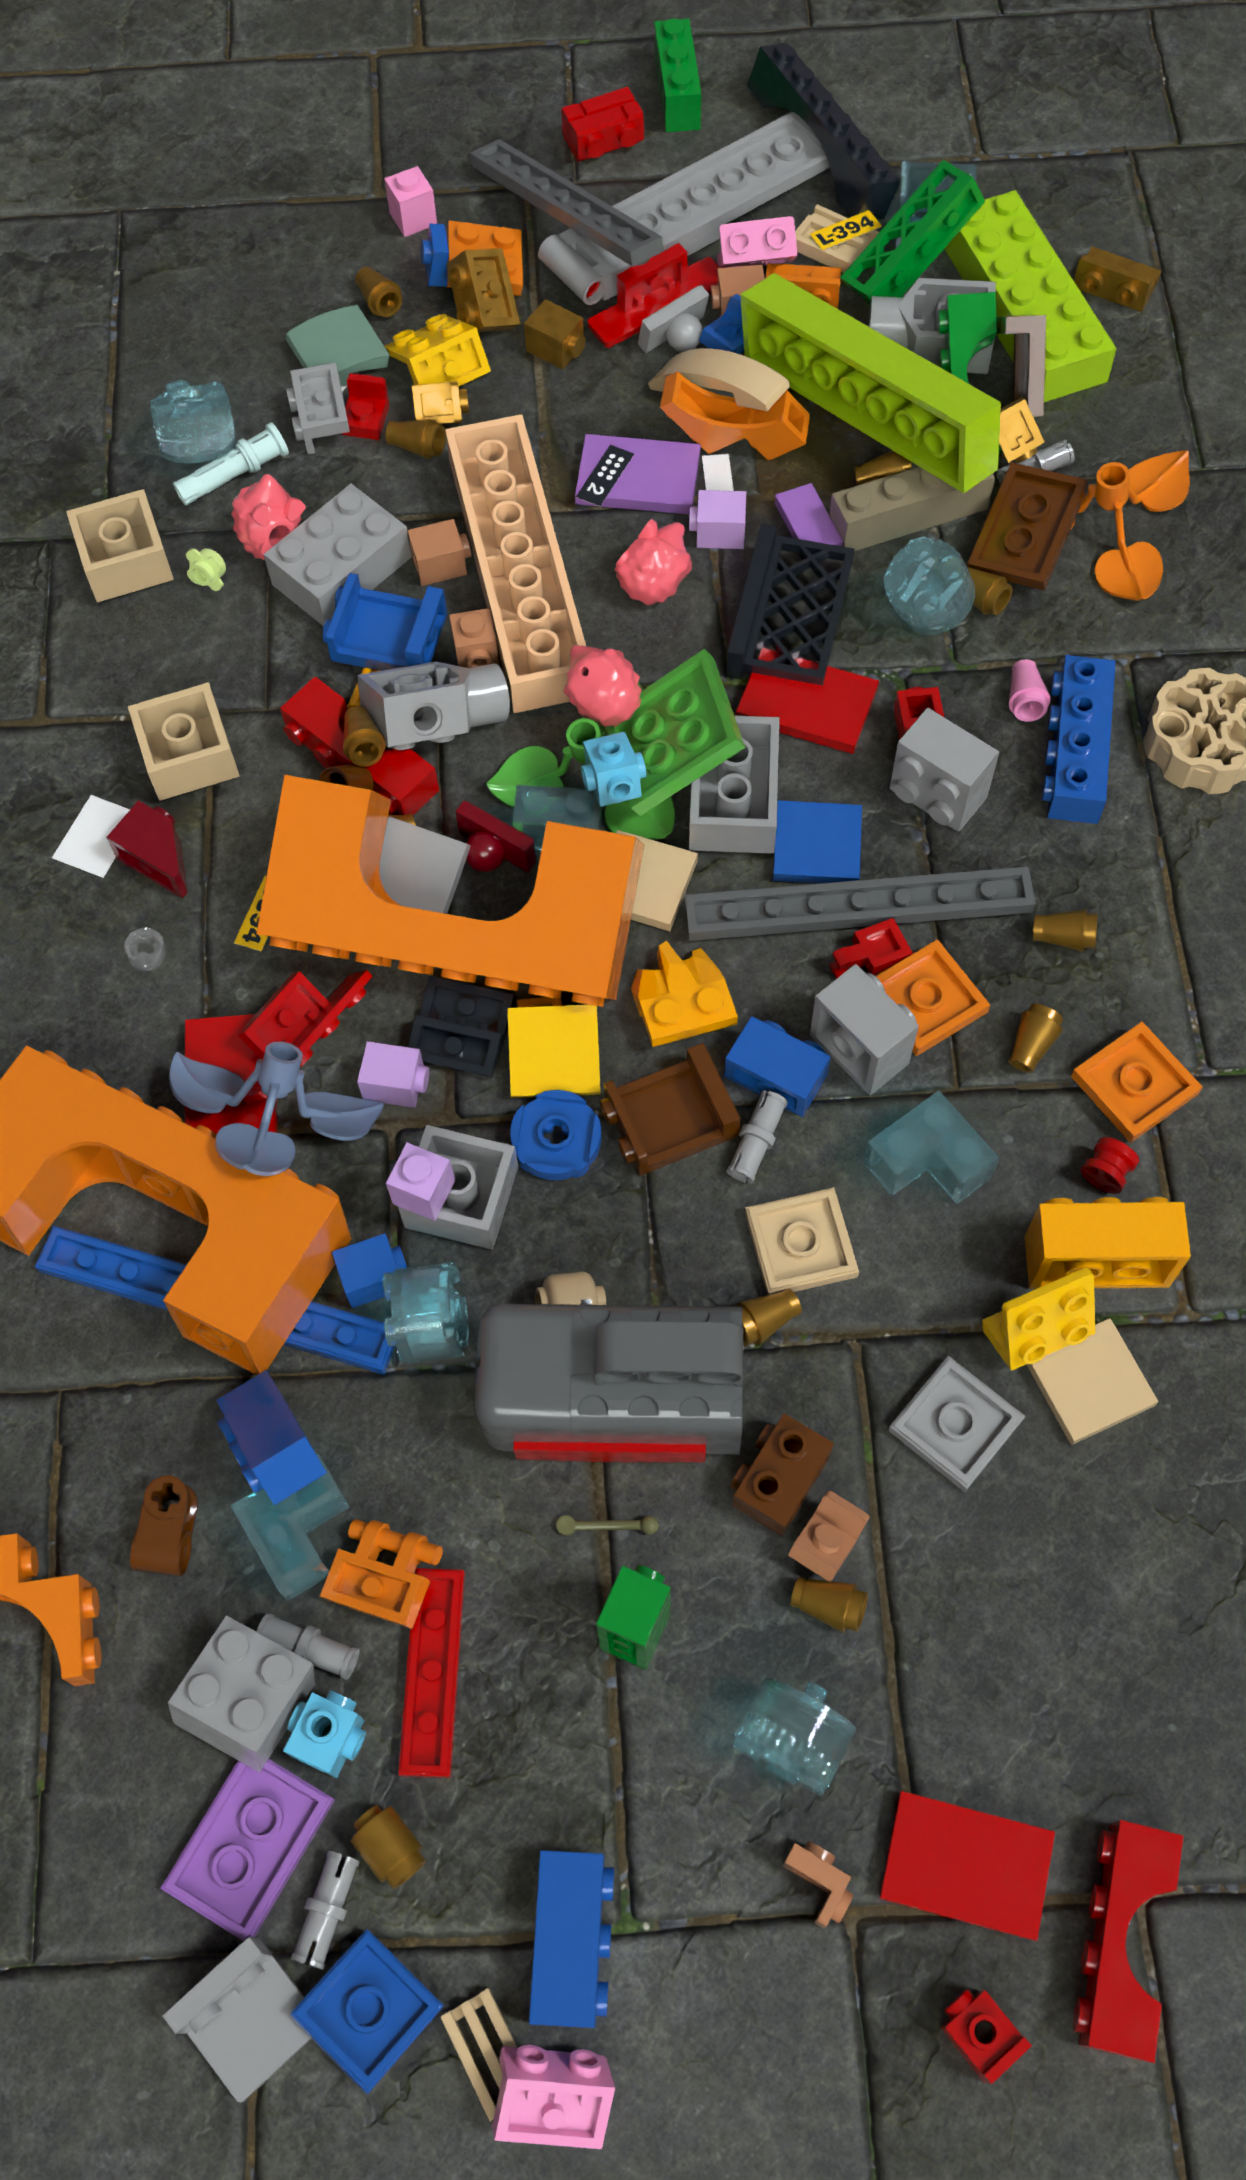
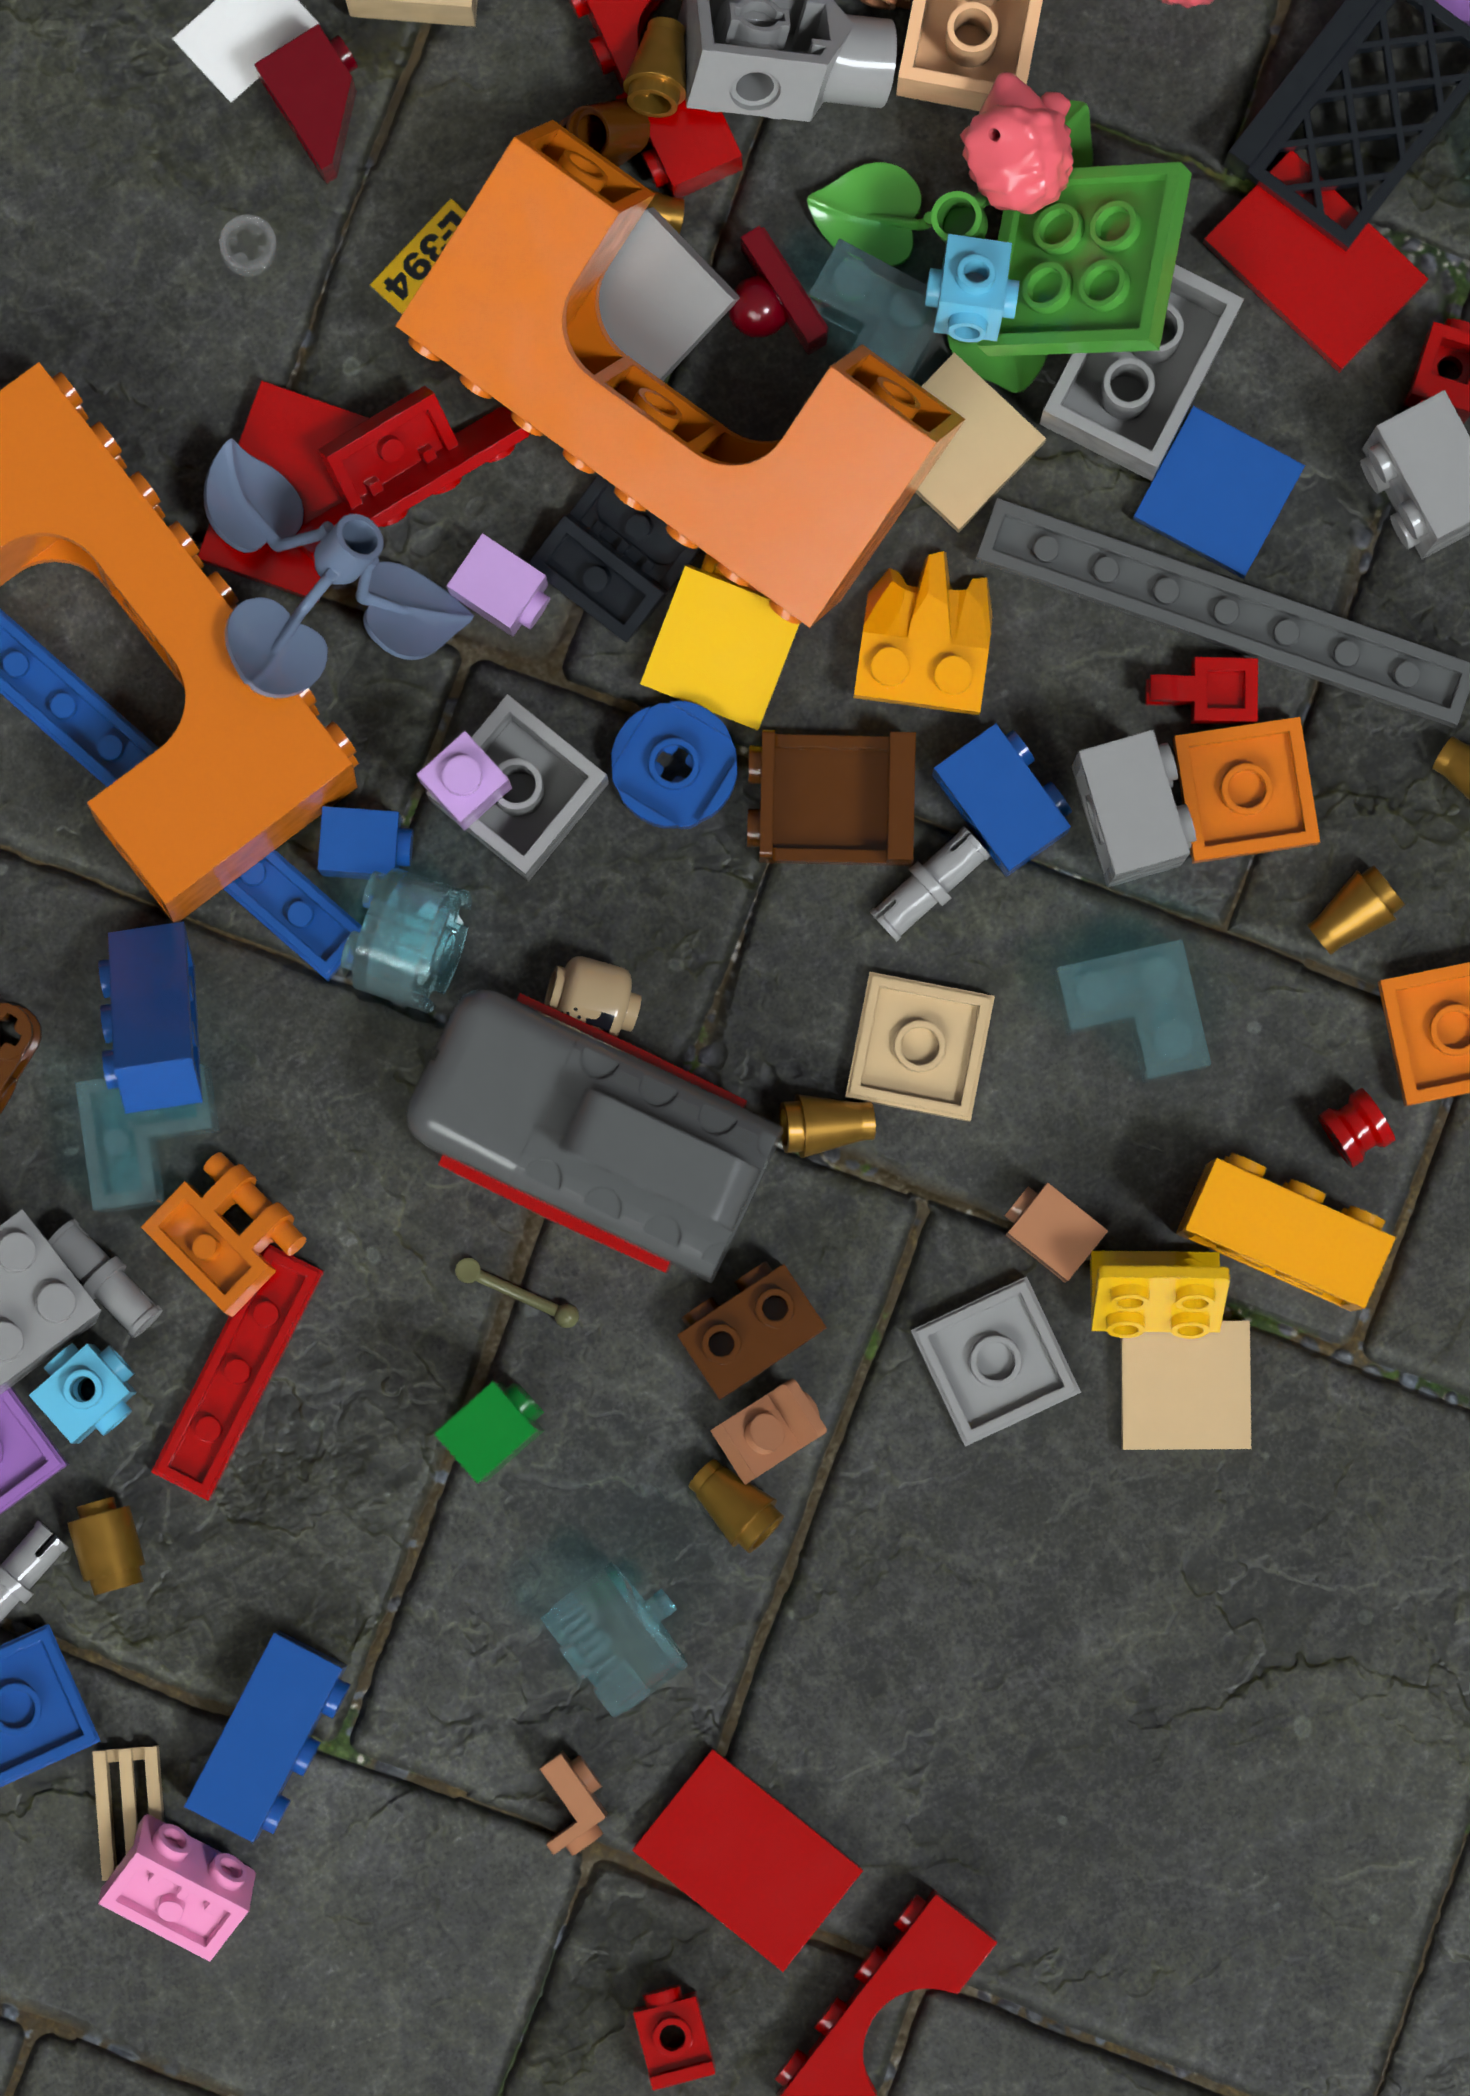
camera: 25 degrees right, 20 degrees up
(951, 1316) = (1053, 1230): none -> nougat brick

